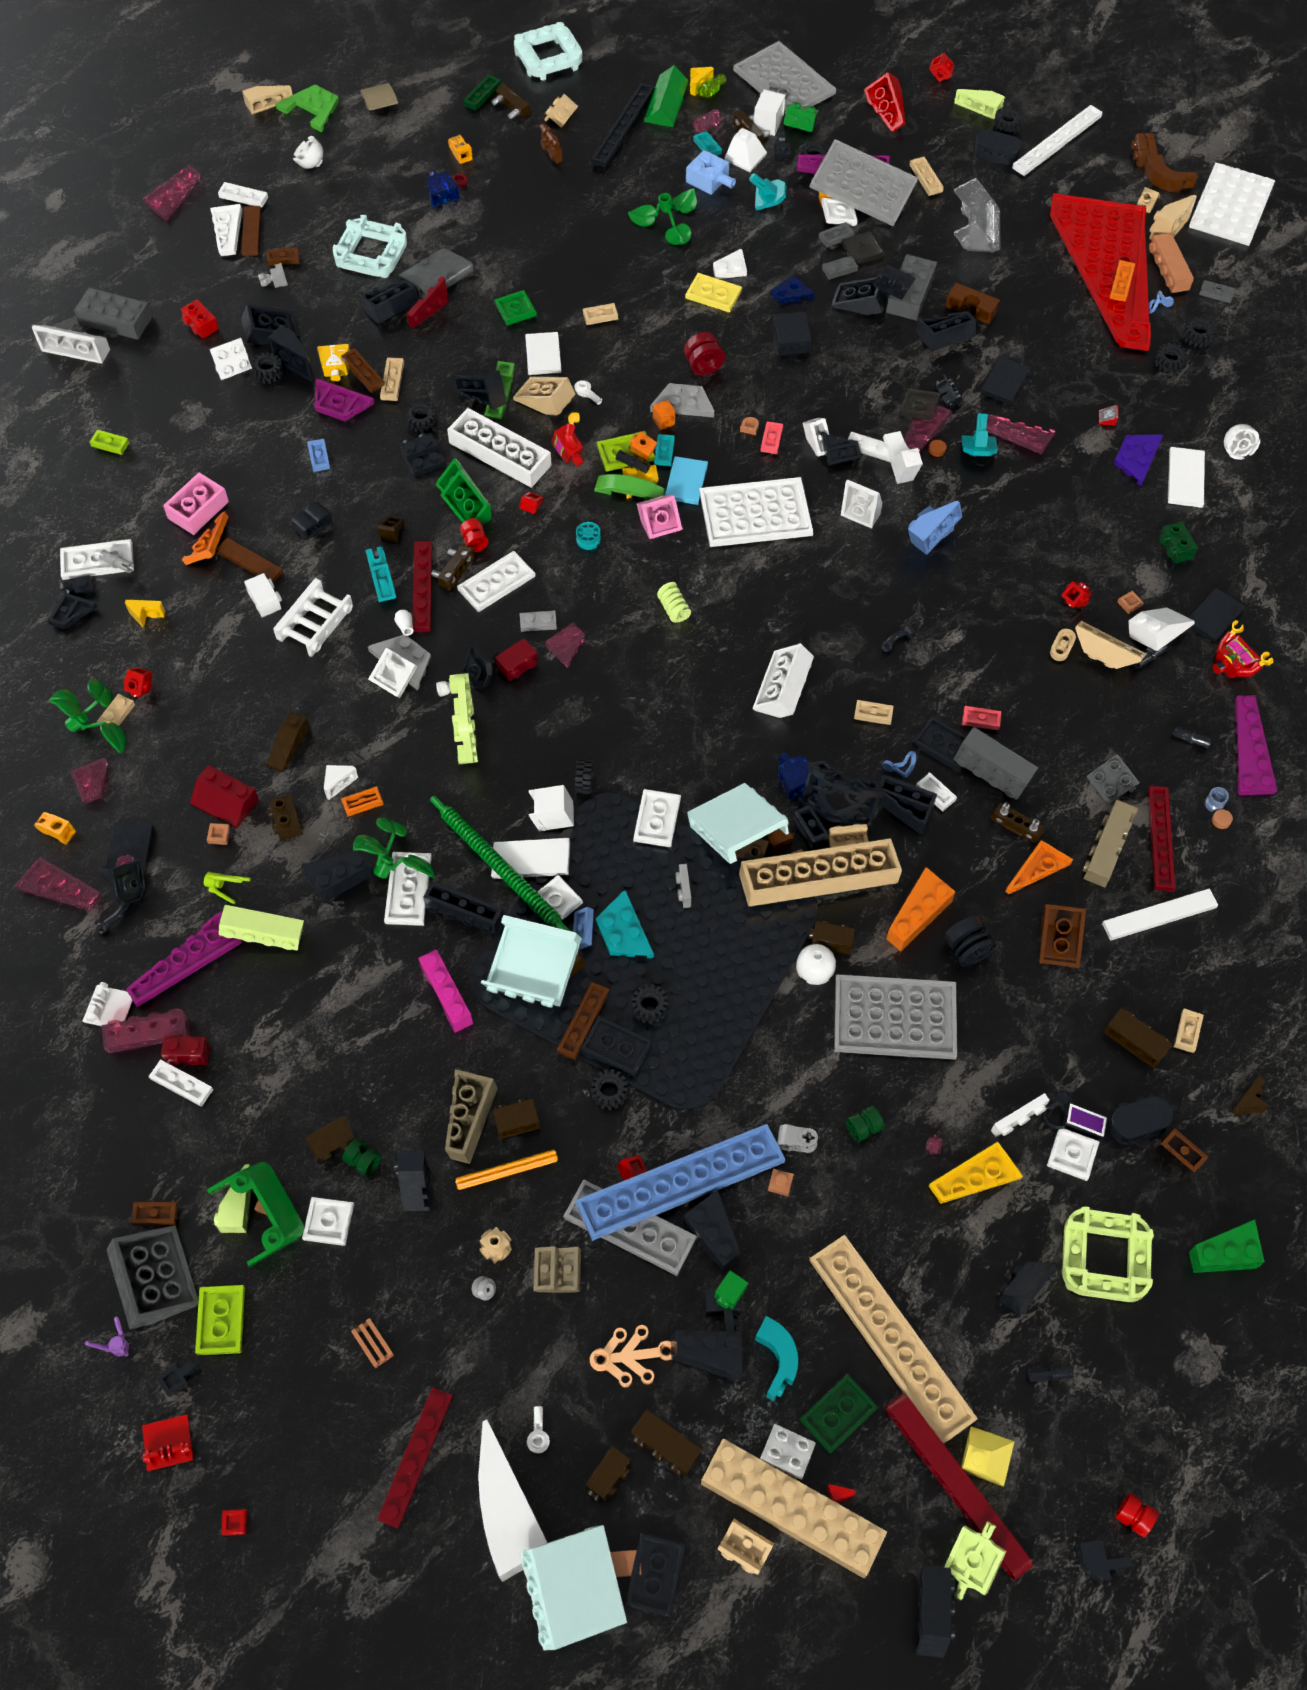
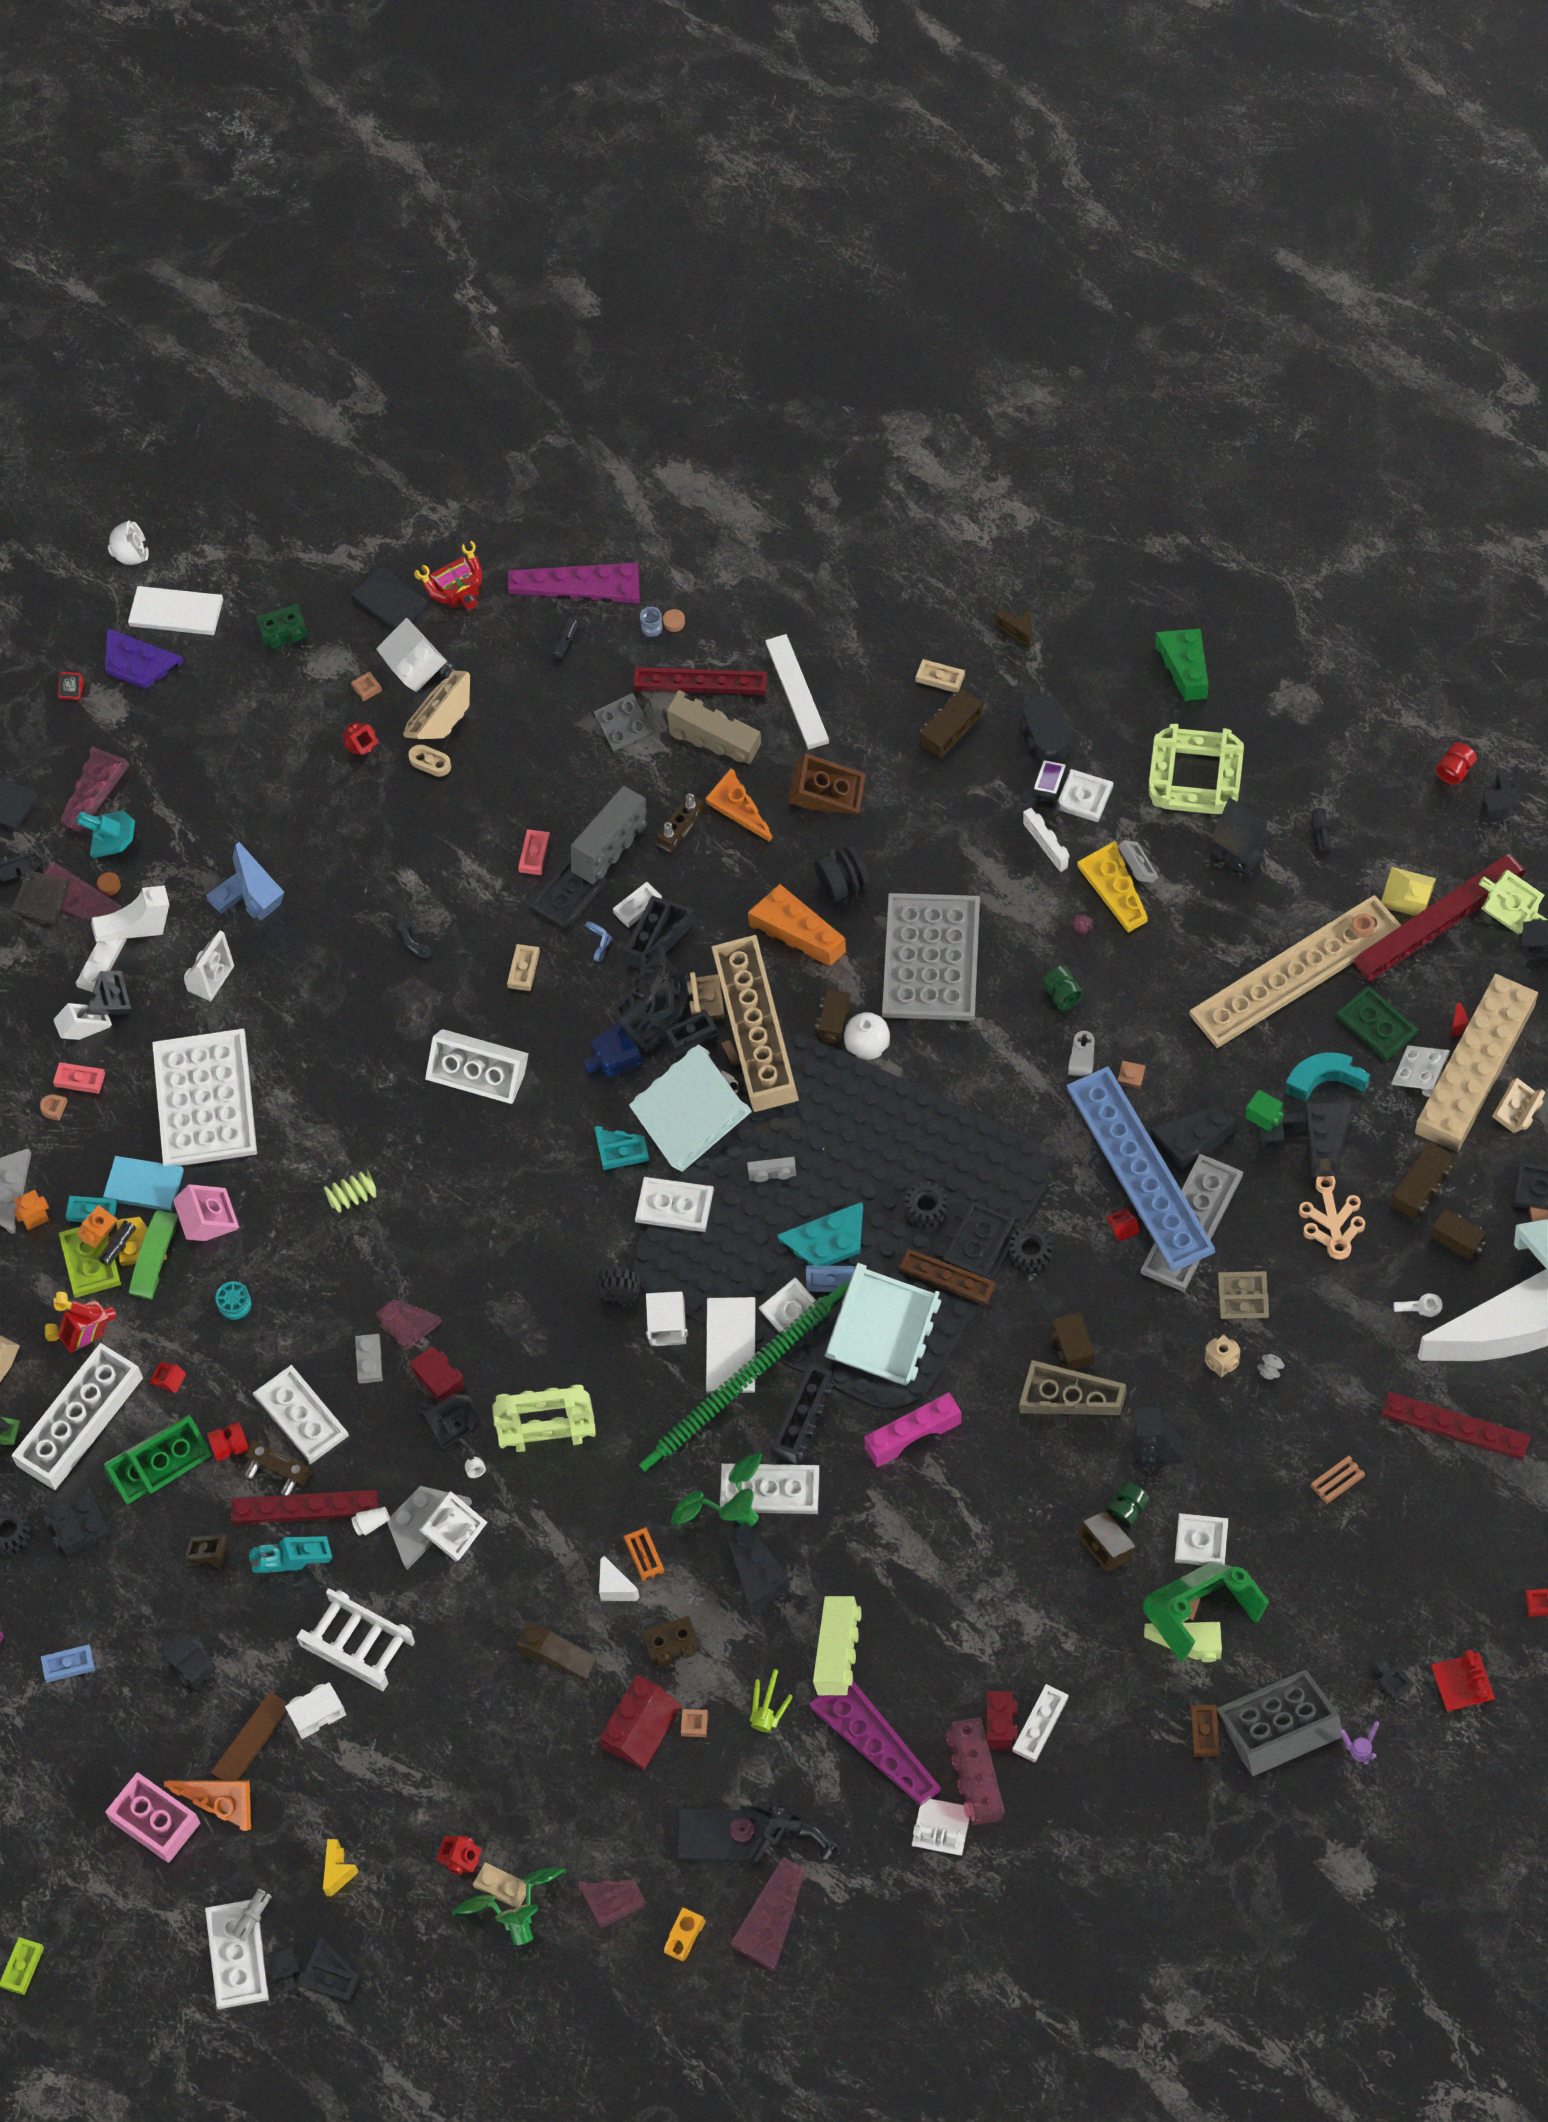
camera: 85 degrees left, 0 degrees up
(220, 1320) = (1324, 1641): lime plate -> none
(506, 1169) = (1131, 1353): light orange axle -> none
(710, 780) = (620, 1148): none -> teal wing
(940, 1403) = (1362, 925): none -> nougat tile
(1002, 1196) = (1138, 861): none -> light grey plate
(1184, 1149) = (1080, 690): reddish brown brick -> none

